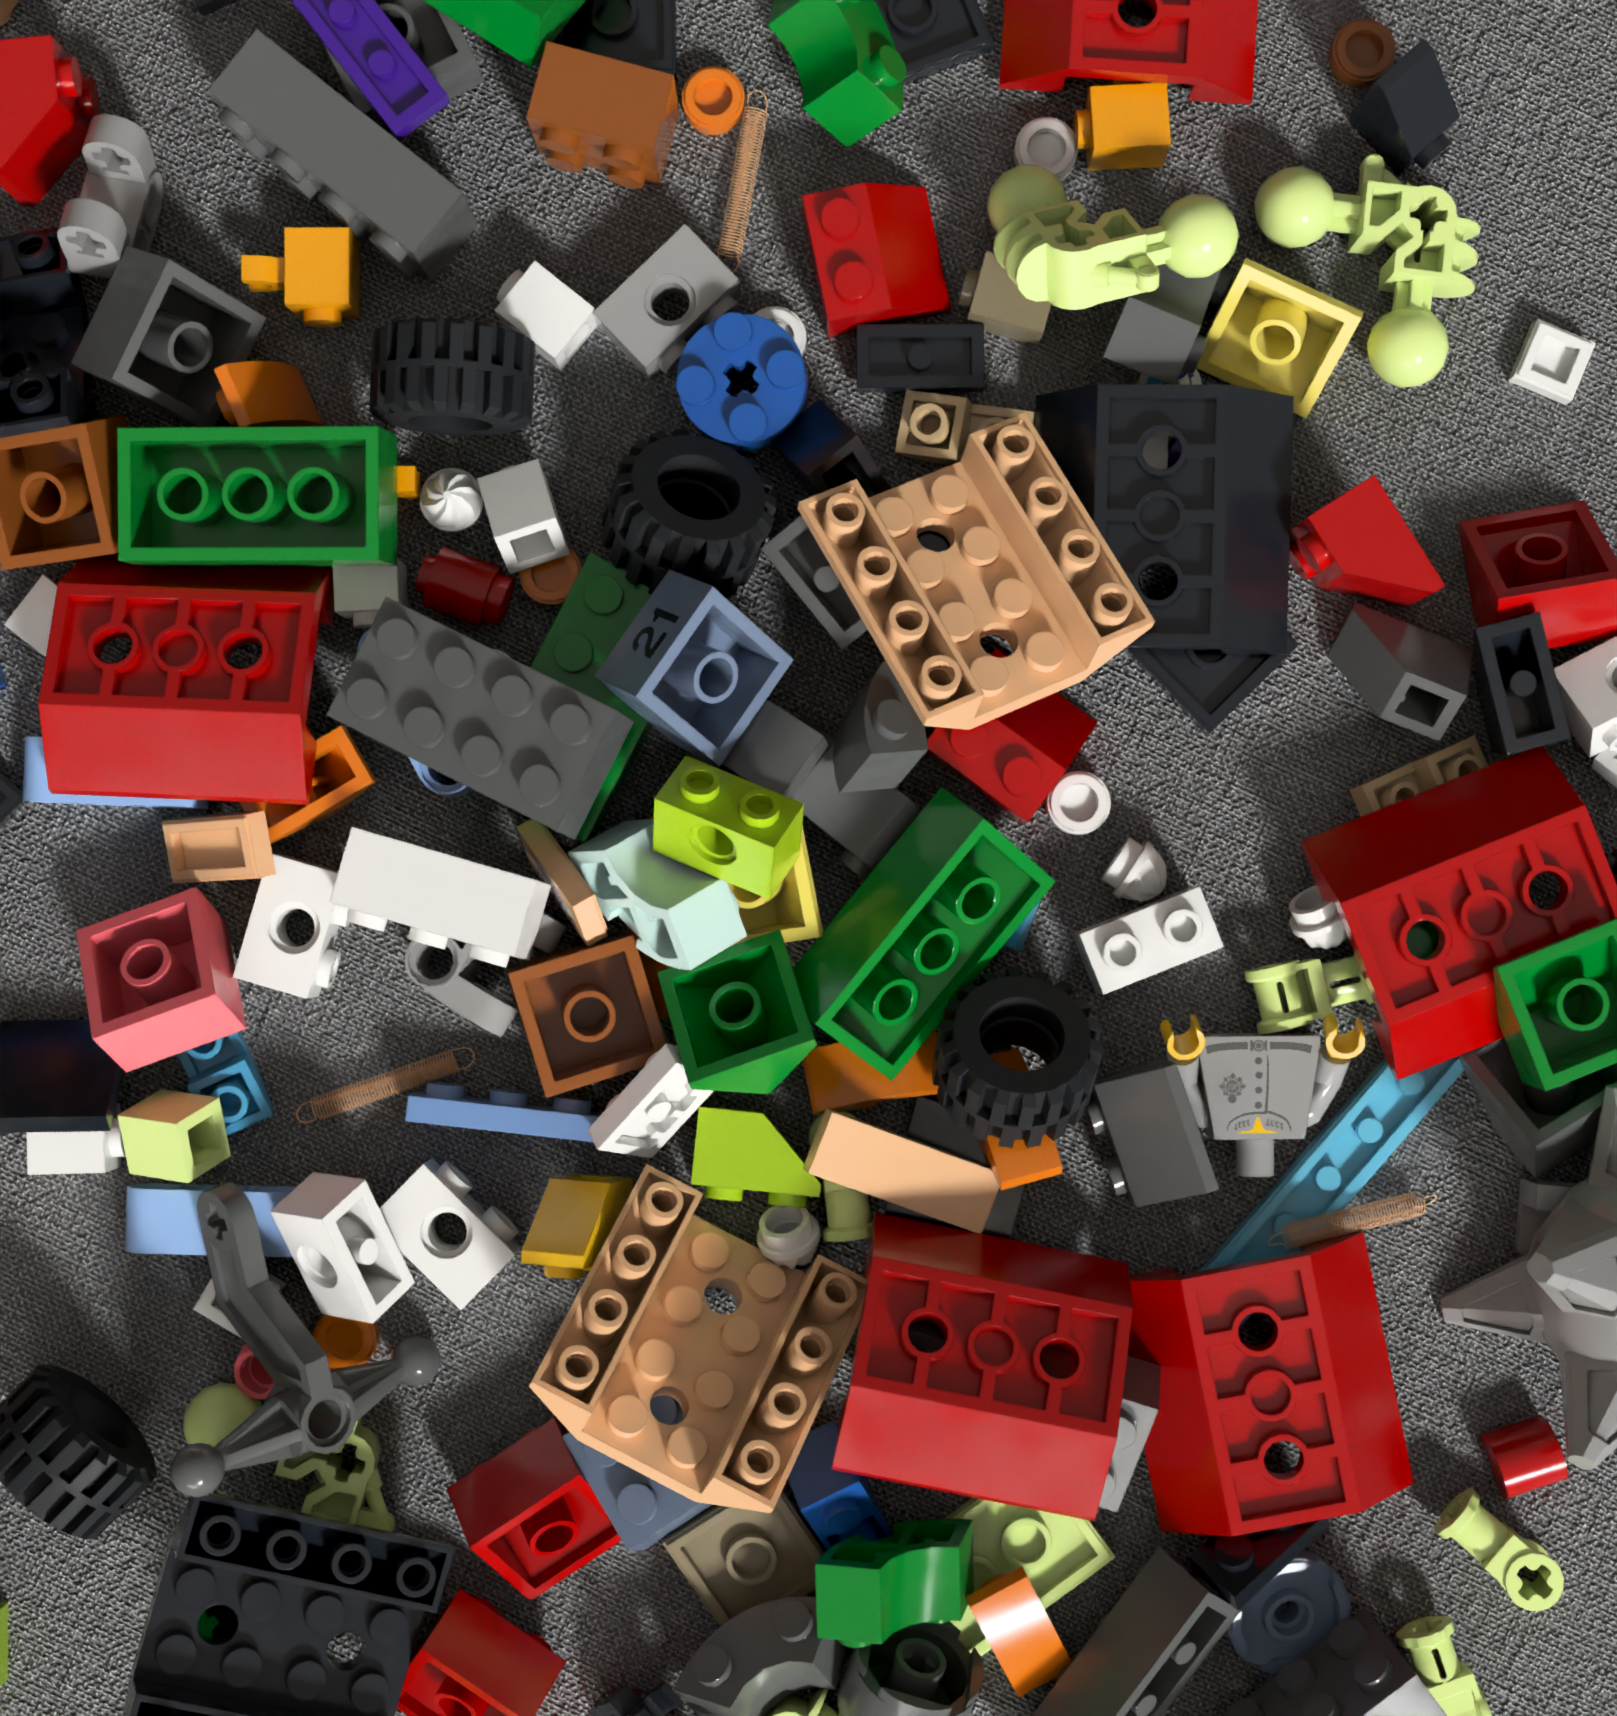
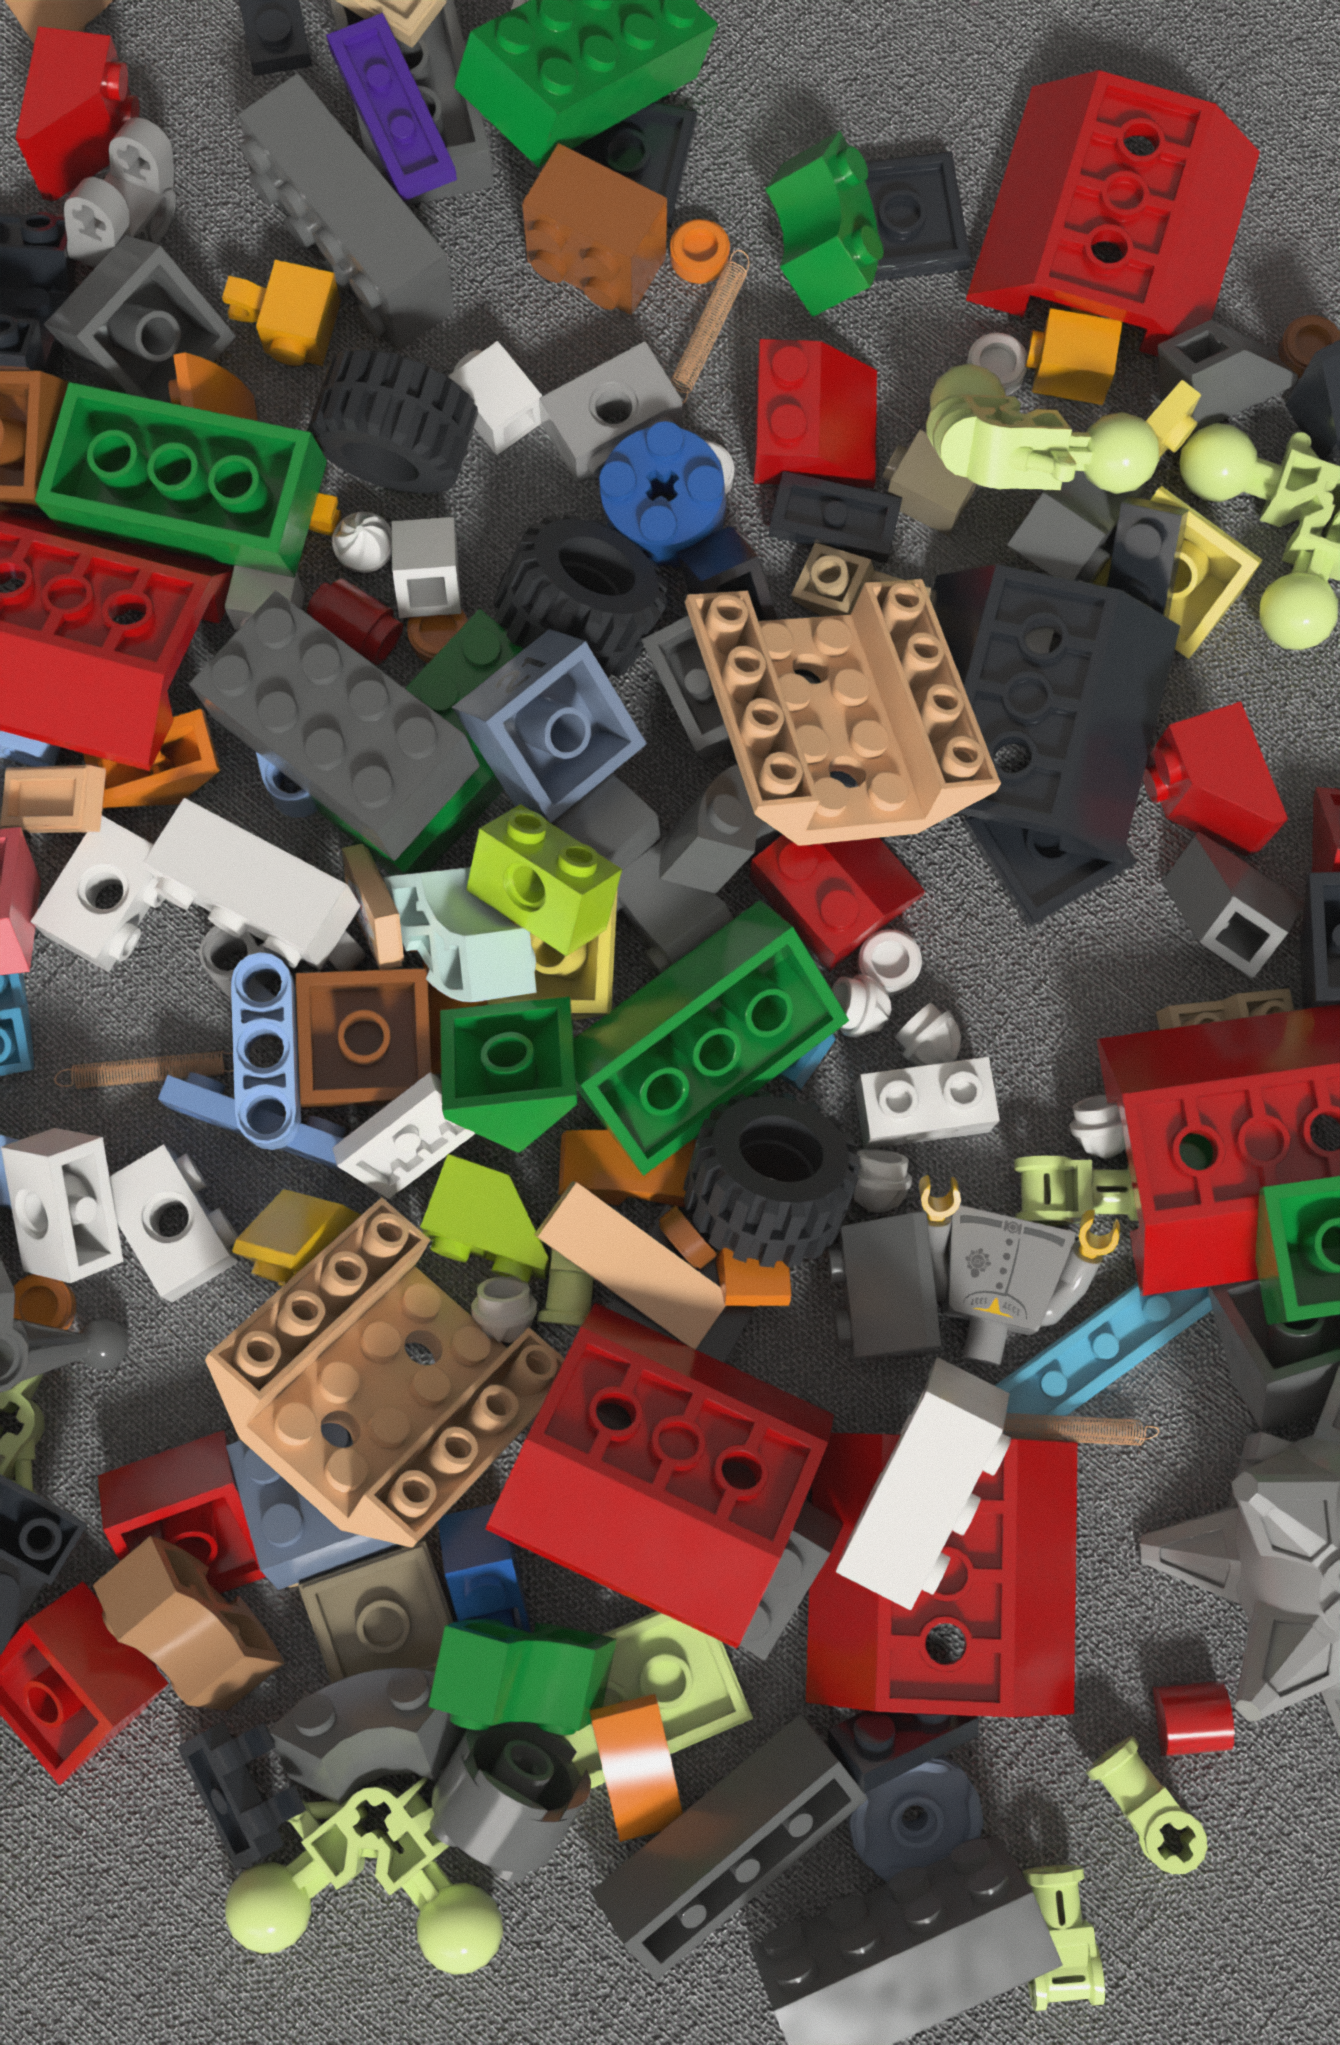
camera: 15 degrees right, 10 degrees down
(496, 1090) = (257, 1020): none -> light blue beam
(568, 1606) = (180, 1622): none -> medium nougat brick
(943, 1131) = (686, 1237): none -> dark orange tile
(1061, 855) = (864, 1004): none -> white plate
(1121, 1021) = (881, 1180): none -> white plate
(1238, 1325) = (928, 1486): none -> white wedge
(1241, 182) = (1173, 417): none -> light yellow plate
(1244, 332) = (1148, 551): none -> black plate
(1276, 112) = (1223, 368): none -> dark grey slope

